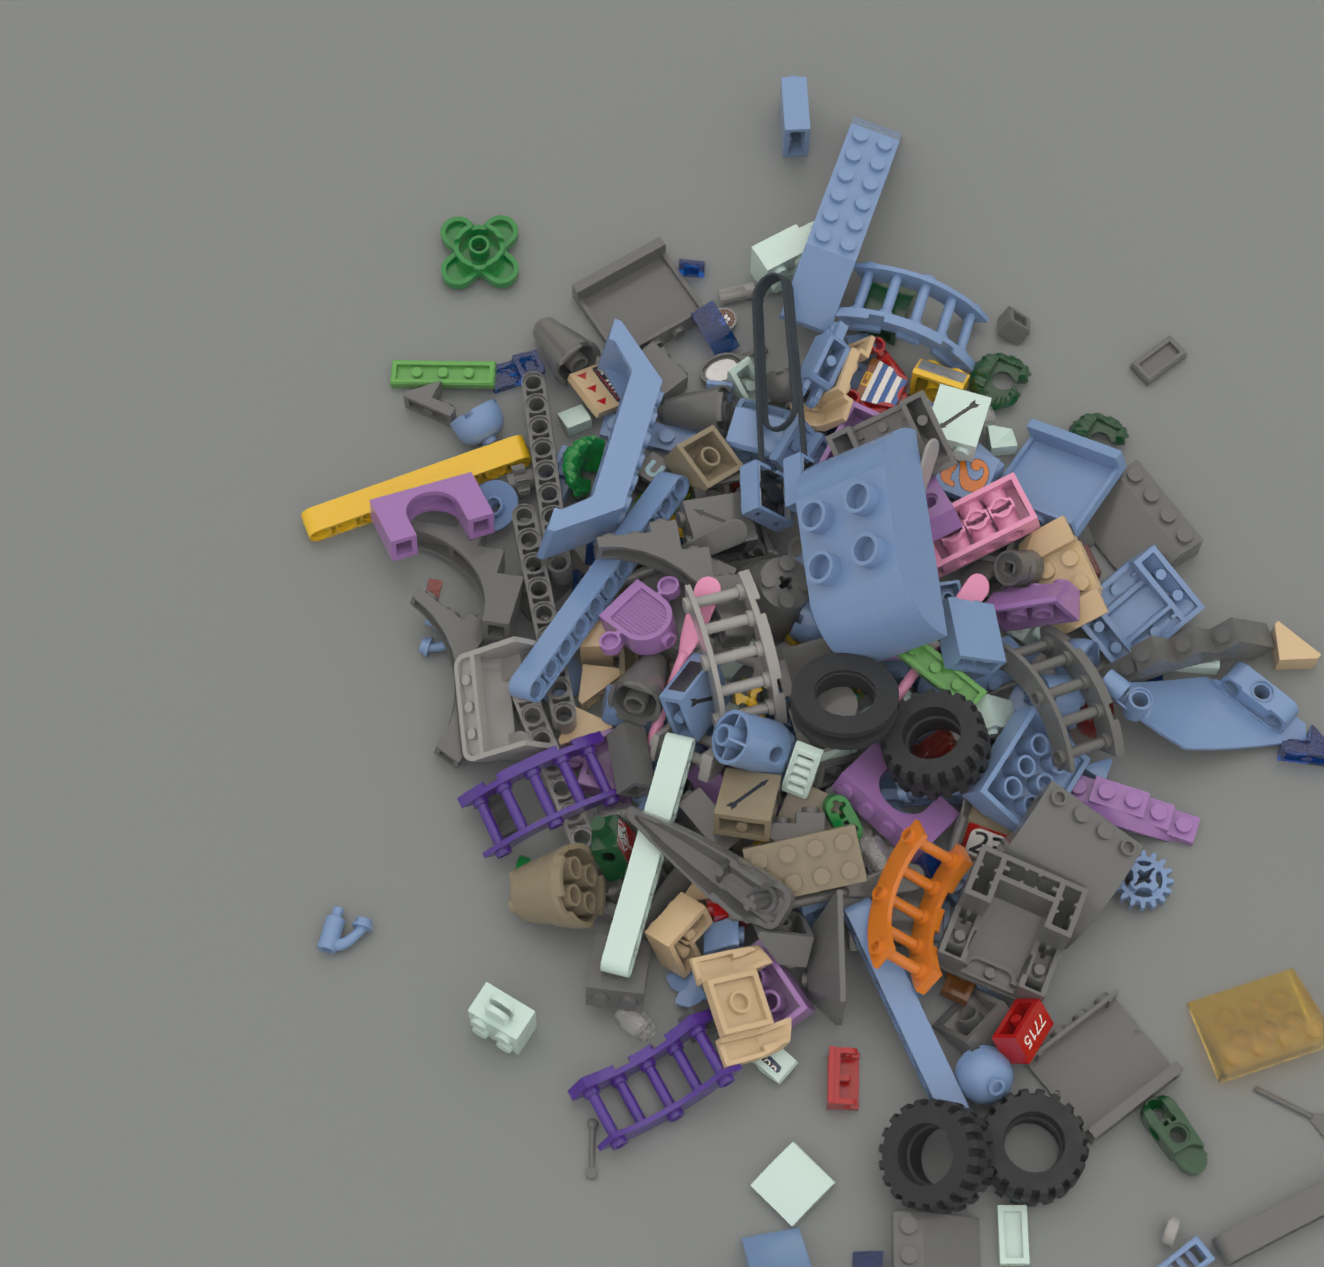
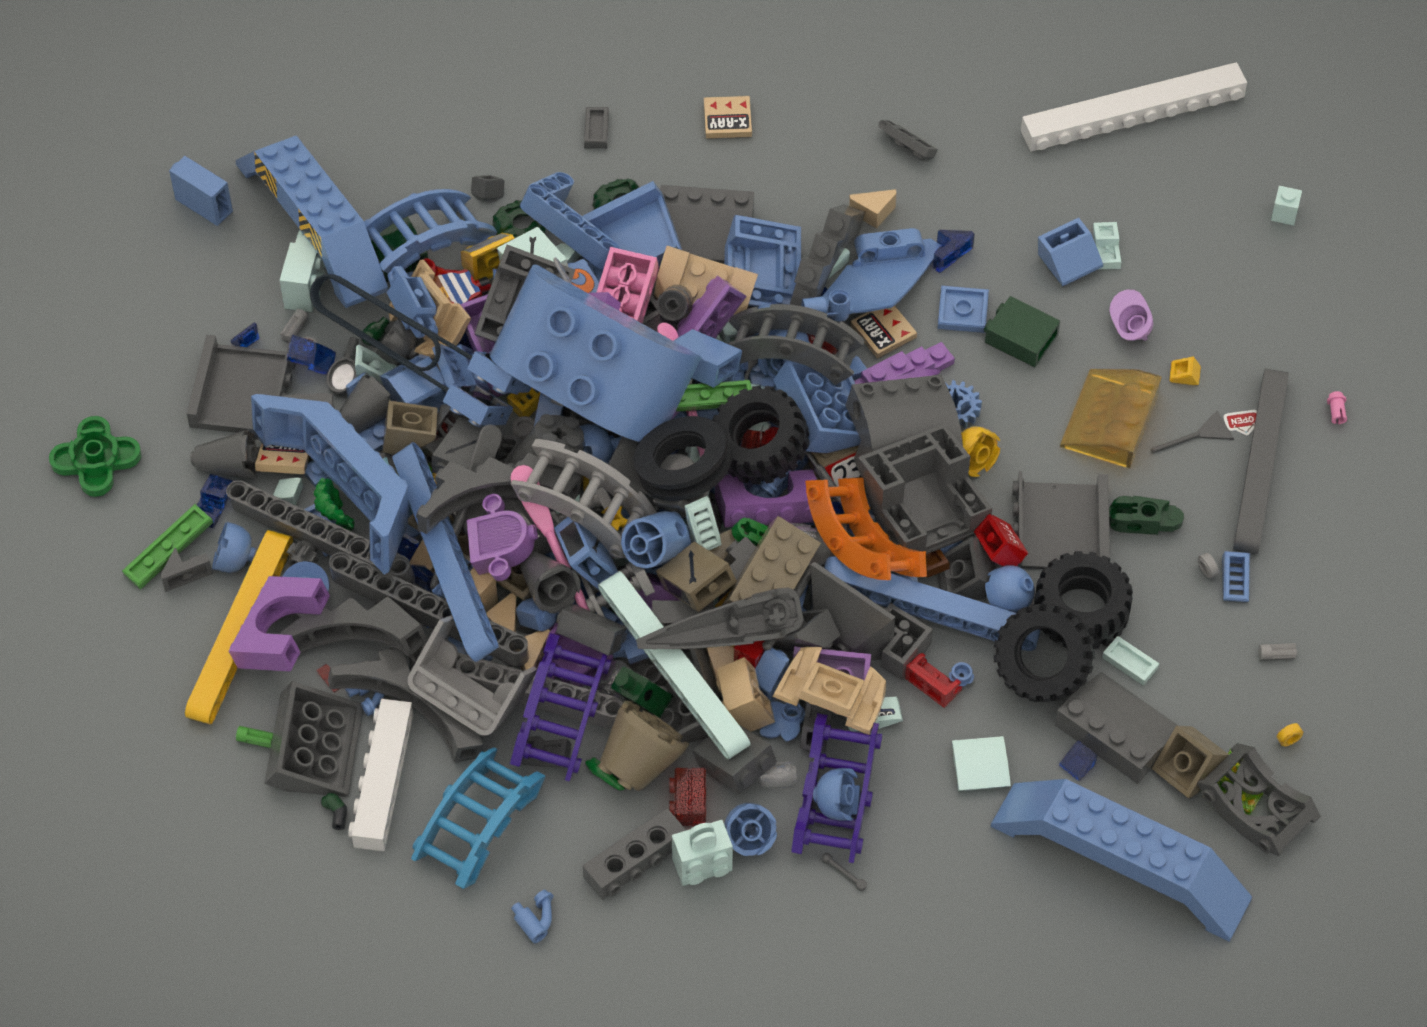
camera: 50 degrees left, 10 degrees down
(315, 700) = (338, 807): none -> arm
(324, 576) = (254, 736): none -> bright green piece
(358, 632) = (313, 741): none -> dark grey slope
(371, 707) = (382, 775): none -> white brick
(393, 830) = (497, 820): none -> dark azure fence
(423, 947) = (639, 841): none -> dark grey brick
(553, 965) = (690, 796): none -> clear red brick
(557, 1040) = (751, 829): none -> medium blue cylinder
(648, 1088) = (837, 794): none -> medium blue cylinder
(780, 360) = (376, 329): none -> dark green cylinder
(857, 1028) = (909, 640): none -> dark grey brick
(869, 1091) = (964, 669): none -> medium blue plate
(1022, 386) = (546, 205): none -> medium blue beam
(1108, 936) = (982, 448): none -> yellow cylinder
(1167, 763) = (883, 330): none -> tan tile
(1255, 809) = (963, 309): none -> medium blue tile
(1272, 455) = (727, 117): none -> tan tile
(1275, 878) = (1021, 331): none -> dark green brick

